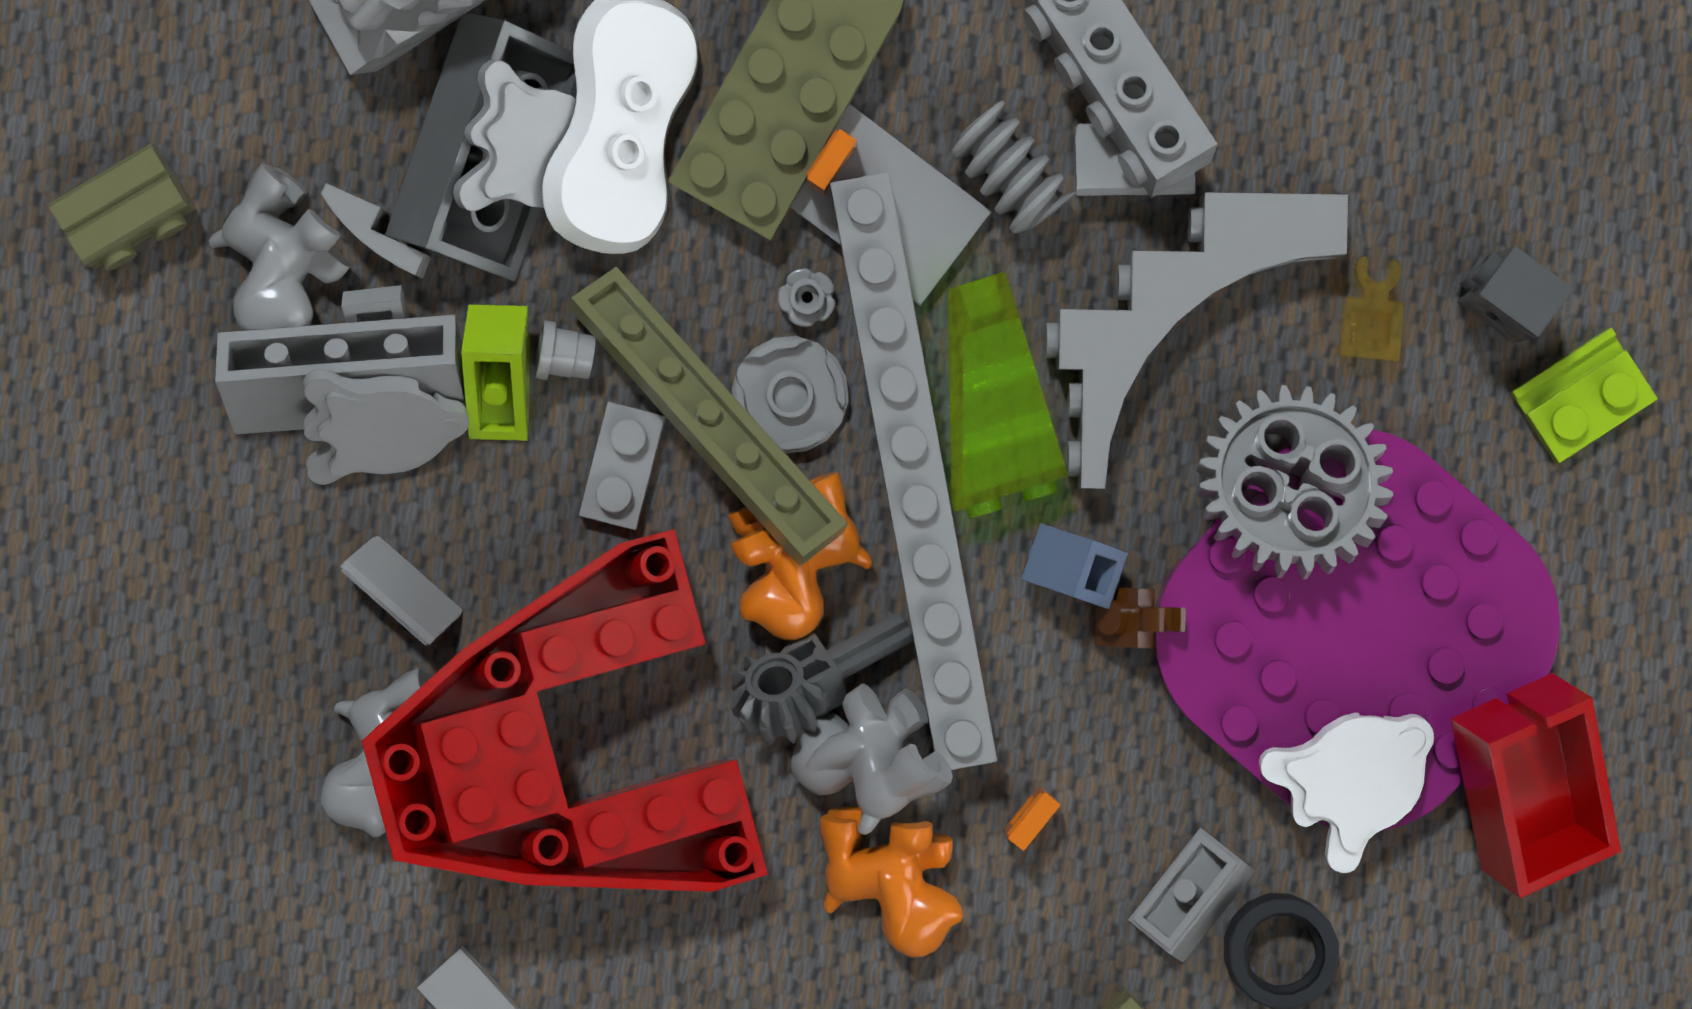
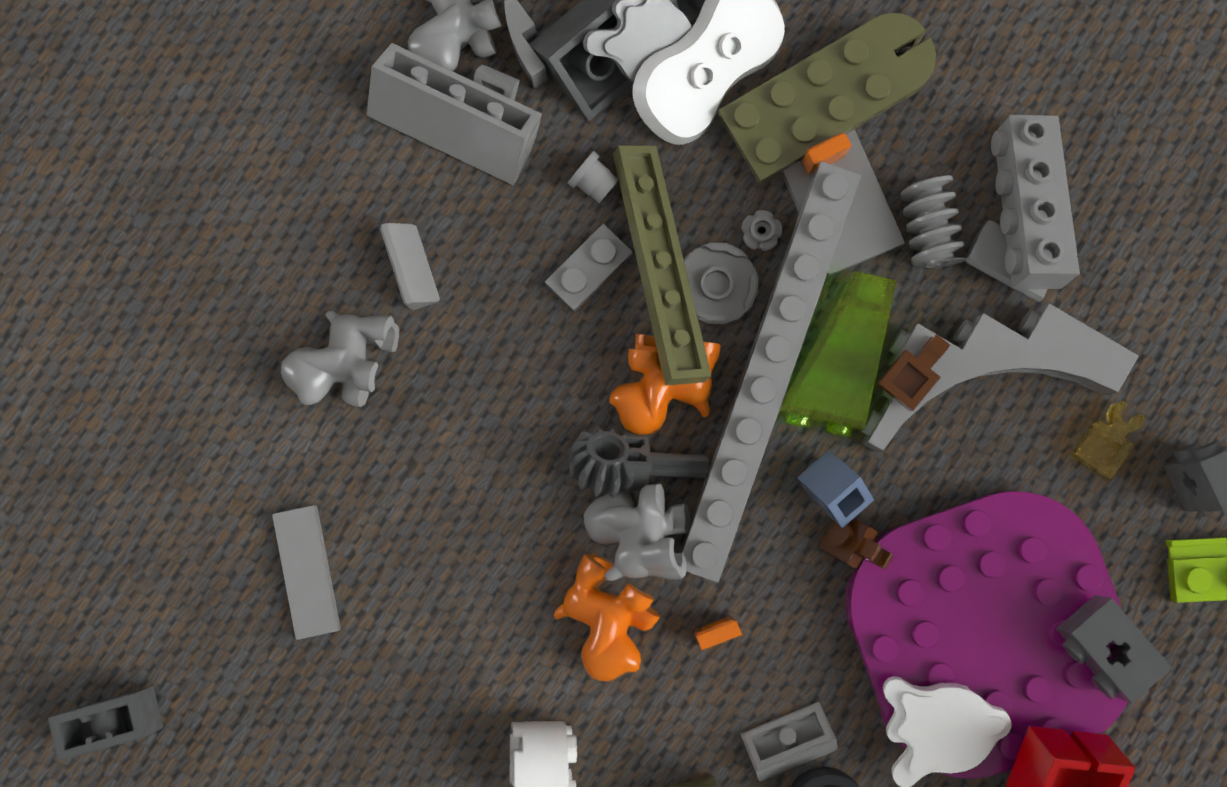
camera: 30 degrees right, 5 degrees down
(375, 424) = (454, 152): light grey tile -> none
(473, 772) = (382, 393): red piece -> none
(497, 371) = (546, 166): lime slope -> none
(1086, 384) = (911, 376): none -> reddish brown plate
(1313, 435) = (983, 535): light grey gear -> none
(1536, 572) = (1135, 660): none -> dark grey brick

